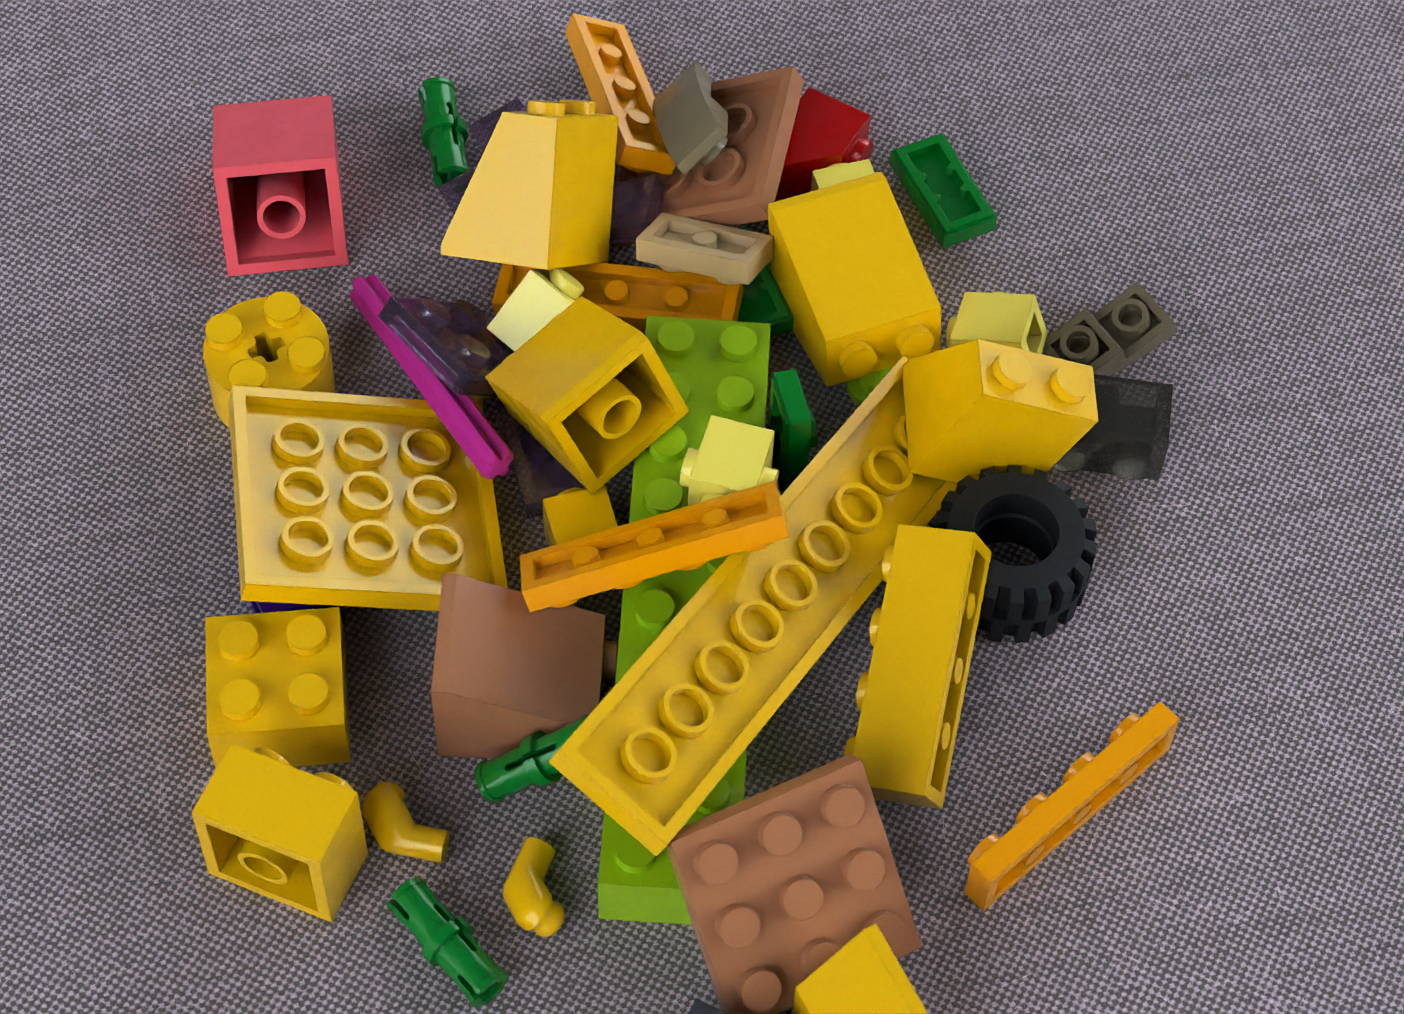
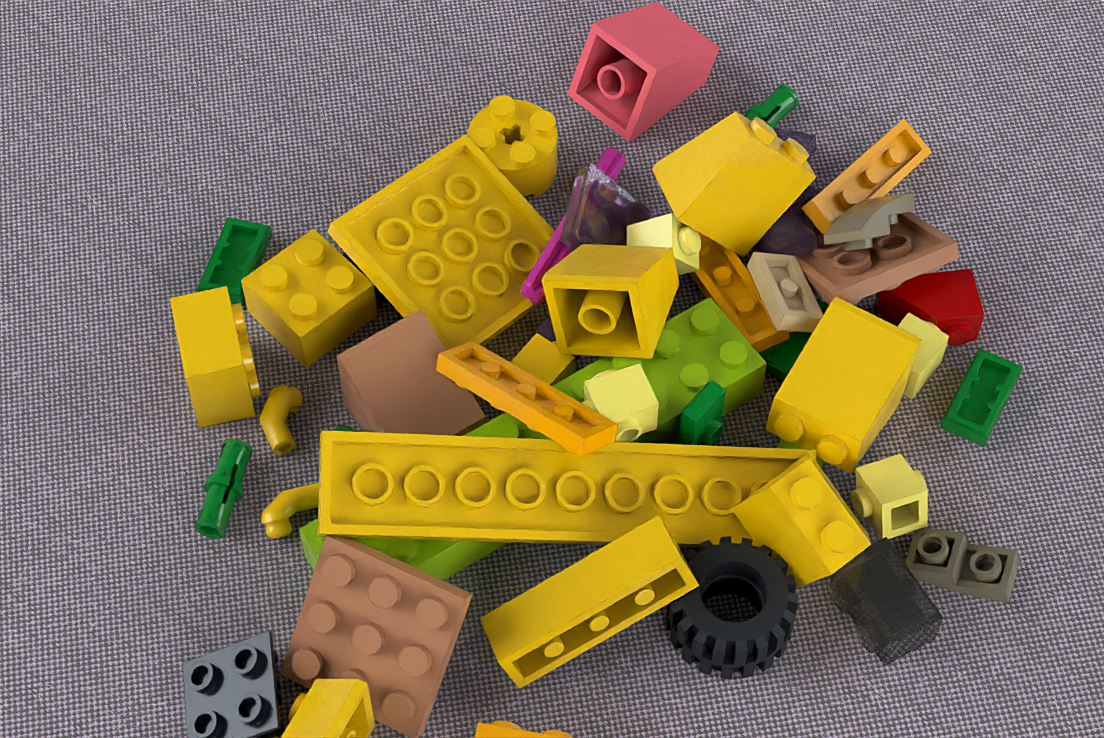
camera: 55 degrees right, 0 degrees up
(146, 738) = (235, 256): none -> green plate

